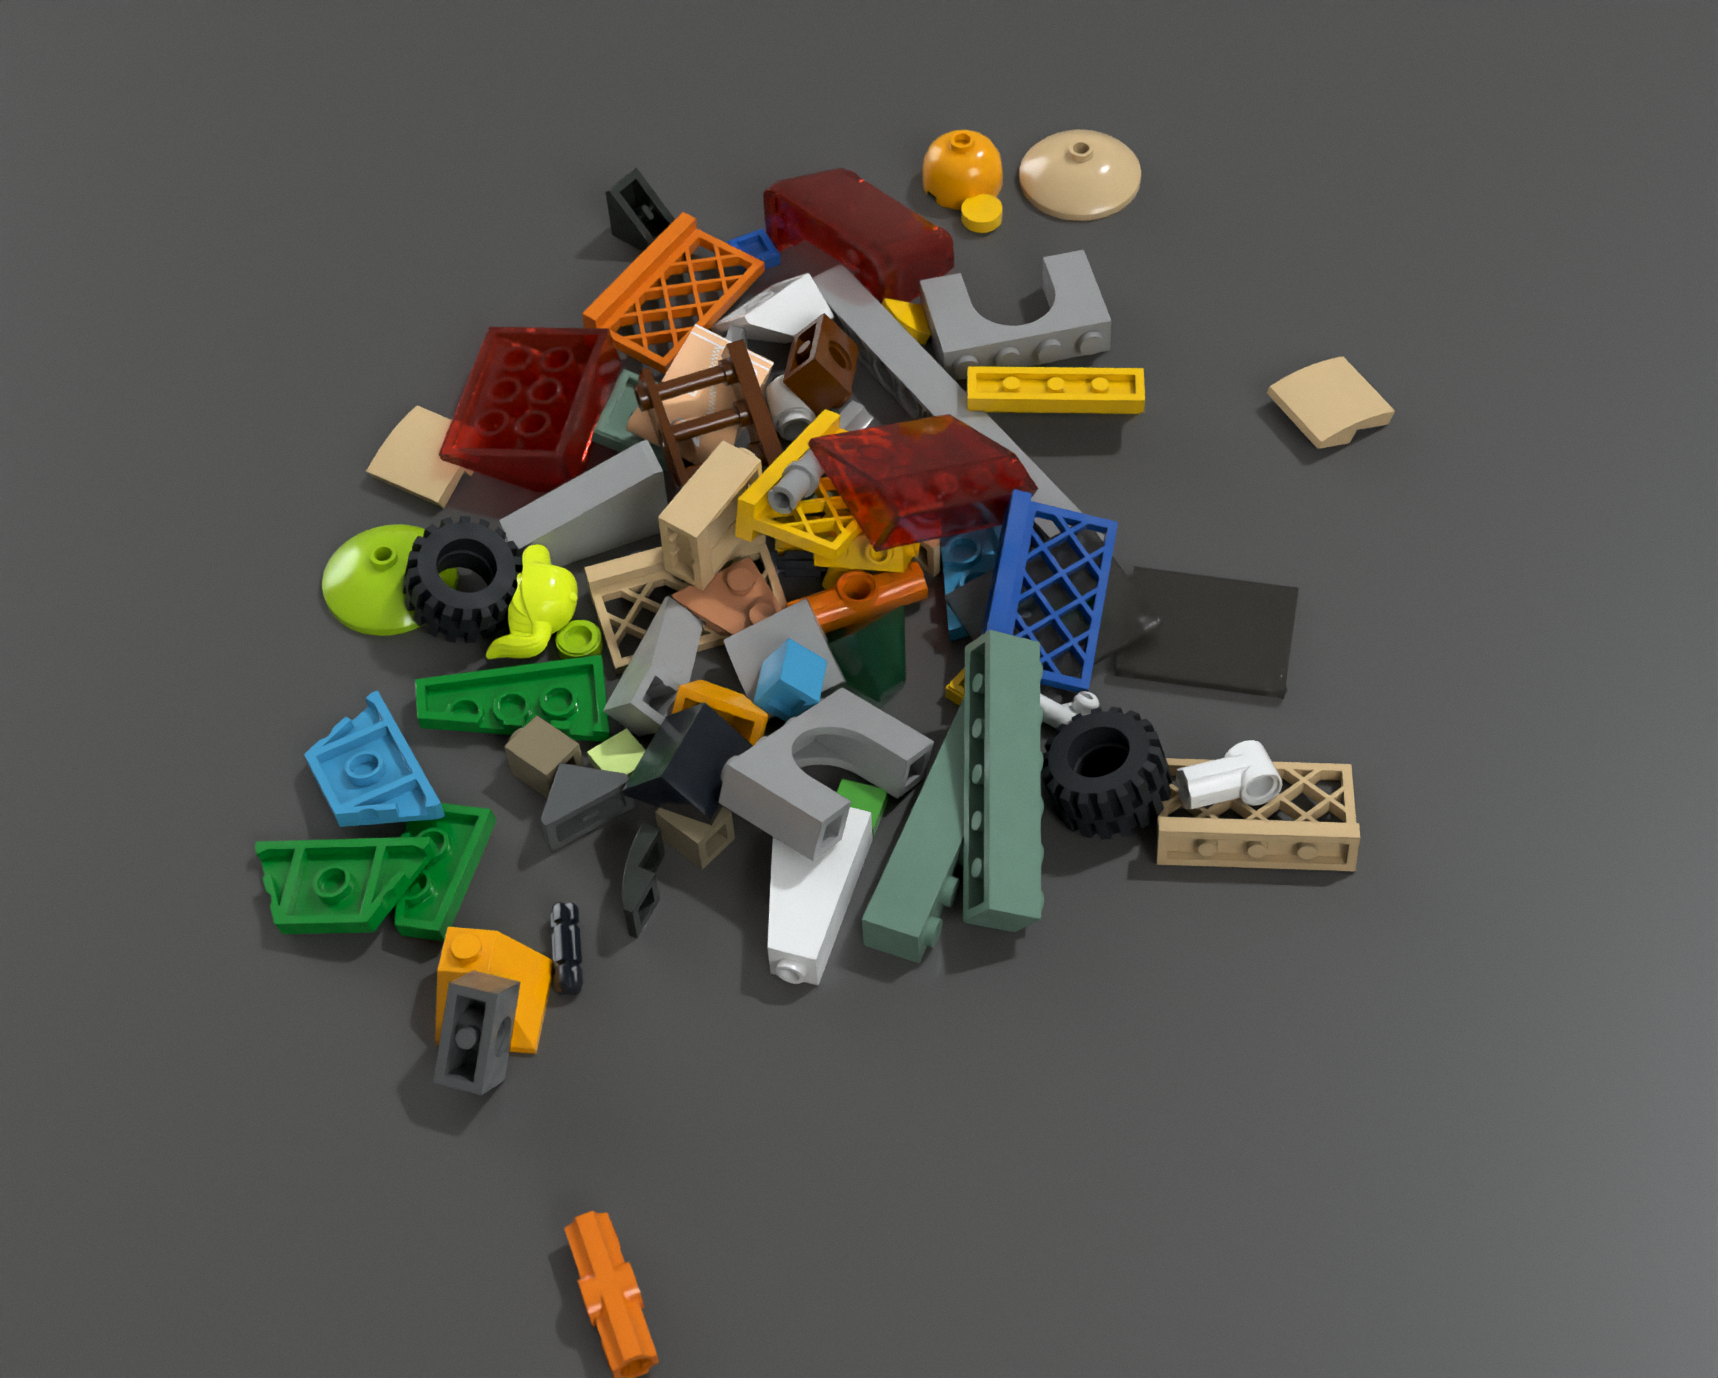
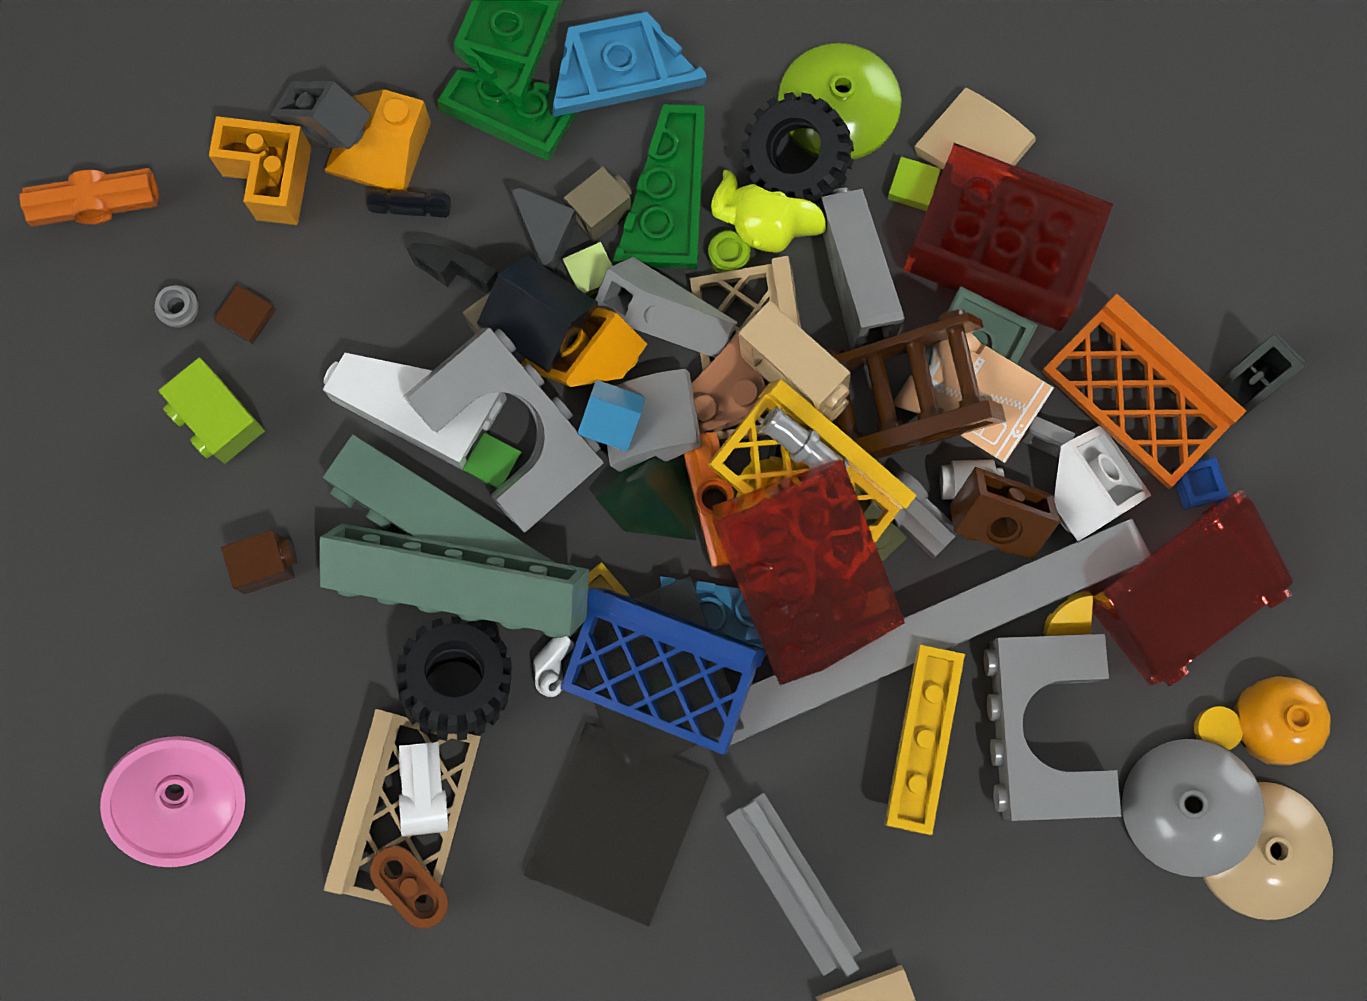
camera: 95 degrees right, 25 degrees up
(479, 499) = (914, 183): none -> lime tile
(538, 1081) = (272, 161): none -> light orange brick
(732, 1091) = (244, 314): none -> reddish brown tile
(735, 1152) = (171, 295): none -> light grey plate
(863, 1079) = (210, 411): none -> lime brick
(1027, 997) = (259, 561): none -> reddish brown brick
(1040, 228) = (1186, 841): none -> light grey dish
(1221, 464) = (795, 886): none -> light grey fence
(1316, 1004) = (169, 826): none -> bright pink dish
(1330, 772) = (408, 886): none -> dark orange plate

